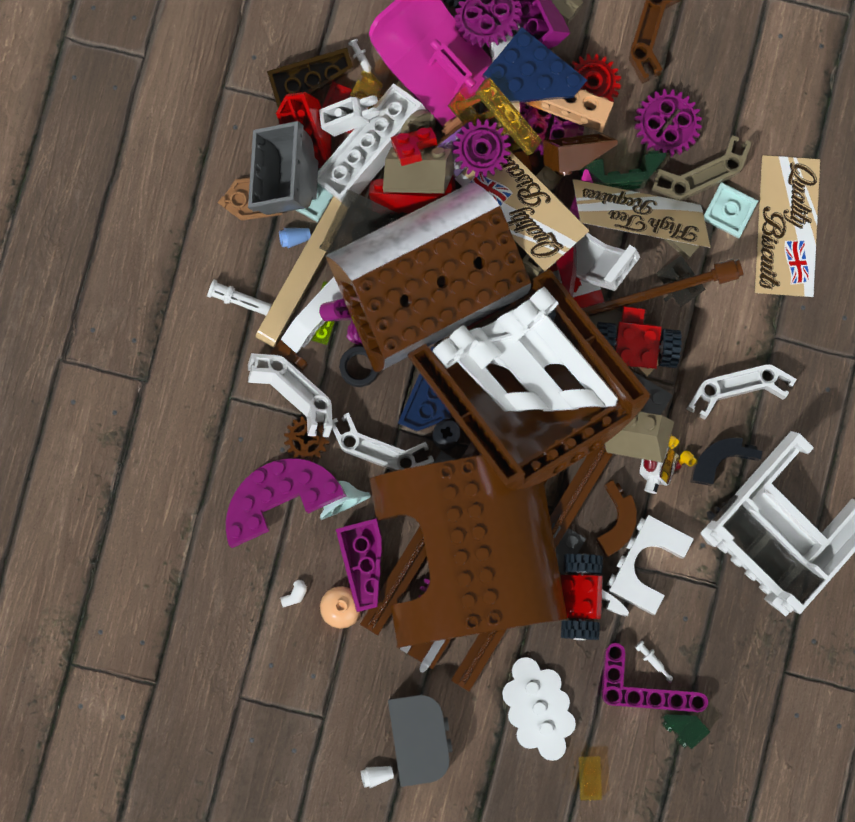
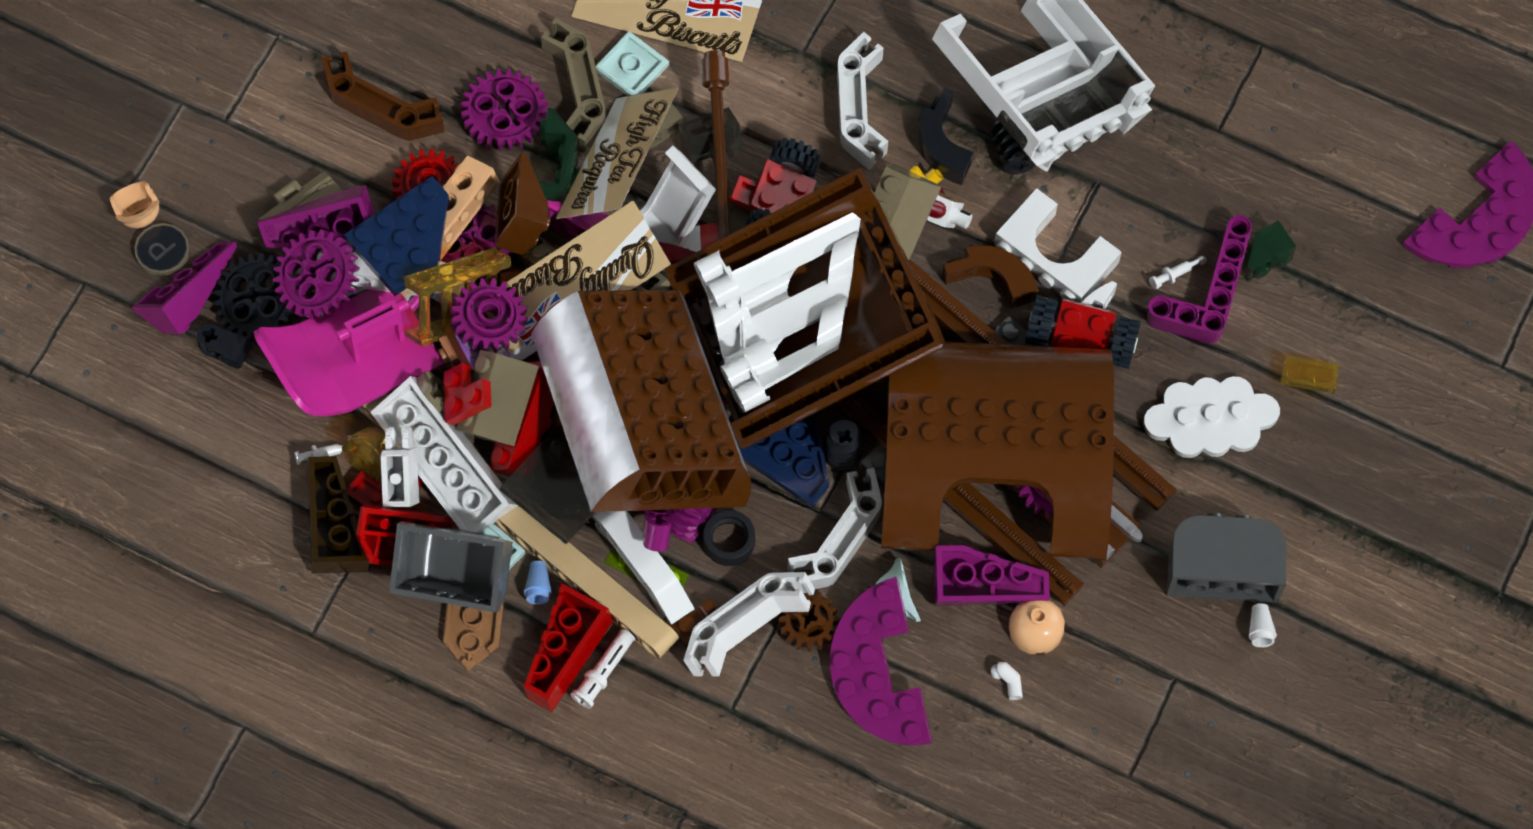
camera: 75 degrees left, 15 degrees down
(246, 266) = (565, 646): none -> red wedge

